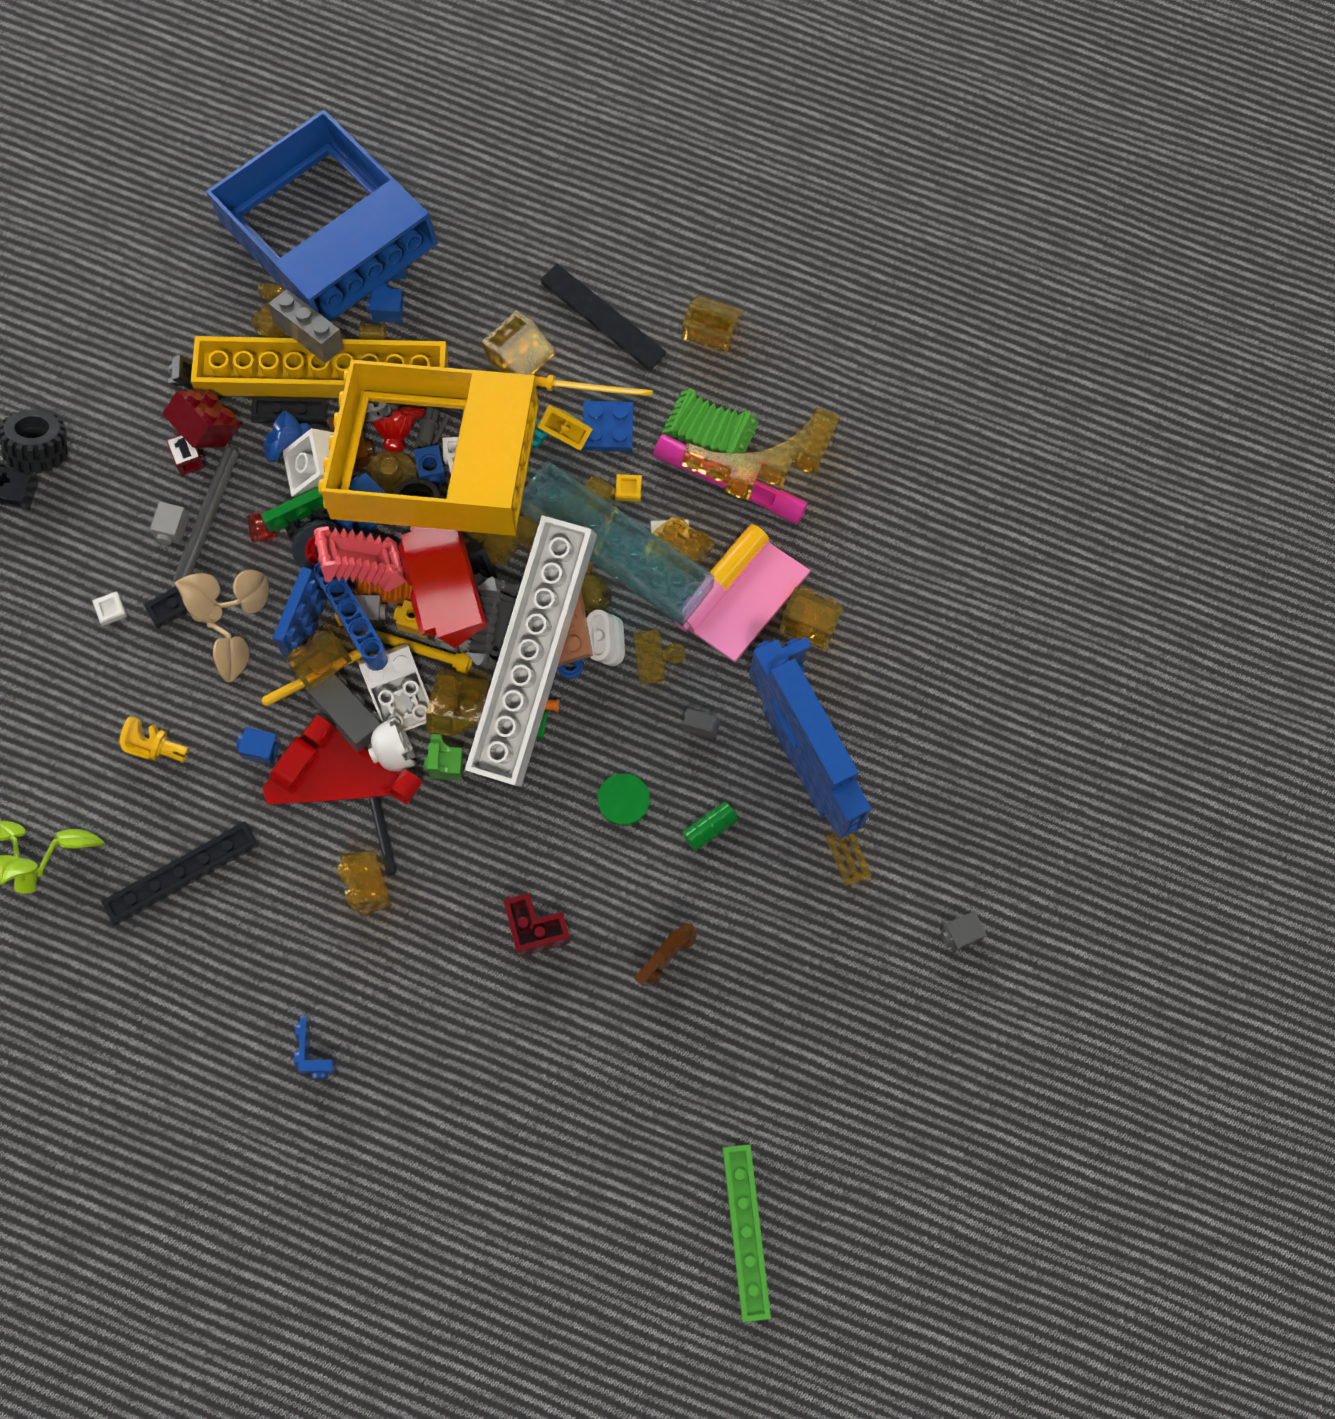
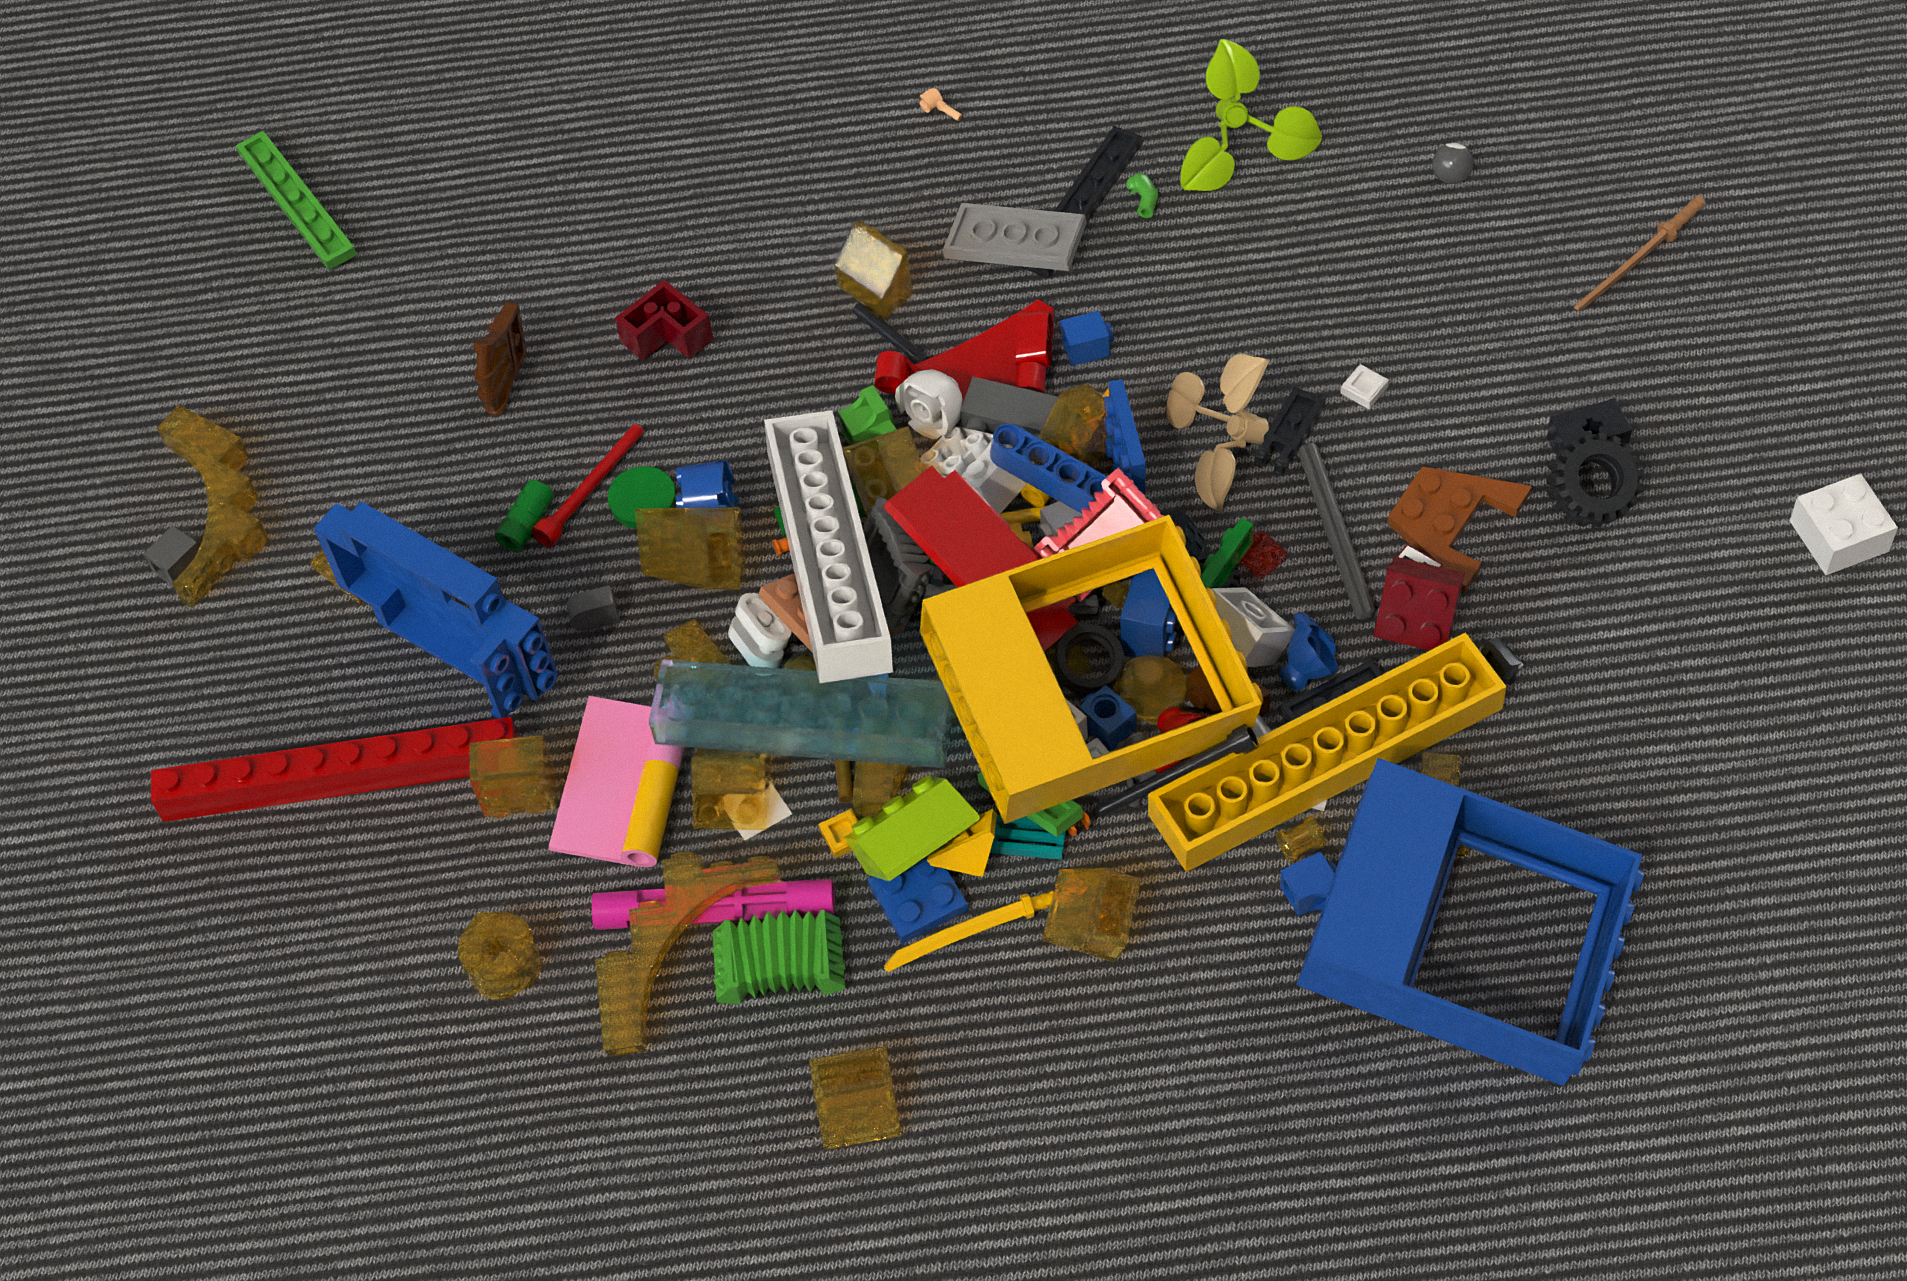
camera: 160 degrees right, 15 degrees down
(132, 848) = (1142, 184): none -> bright green arm
(133, 495) = (1440, 507): none -> dark orange wing
(135, 743) = (1206, 279): yellow piece -> none
(169, 523) = (1368, 494): light grey brick -> none
(223, 1034) = (933, 99): none -> light nougat hand
(248, 862) = (1015, 236): none -> light grey tile
(306, 326) = (1354, 751): dark grey brick -> none
(317, 1068) = (824, 113): blue bracket -> none
(582, 756) = (706, 485): none -> blue brick
(591, 446) = (910, 828): none -> lime slope
(603, 317) = (1015, 1034): black tile -> none
(611, 716) = (692, 546): none -> clear yellow slope
(697, 806) = (549, 530): none -> red piece
(884, 510) = (499, 954): none -> clear yellow brick
(904, 1006) = (229, 529): none -> clear yellow arch
(925, 698) = (321, 770): none -> red brick

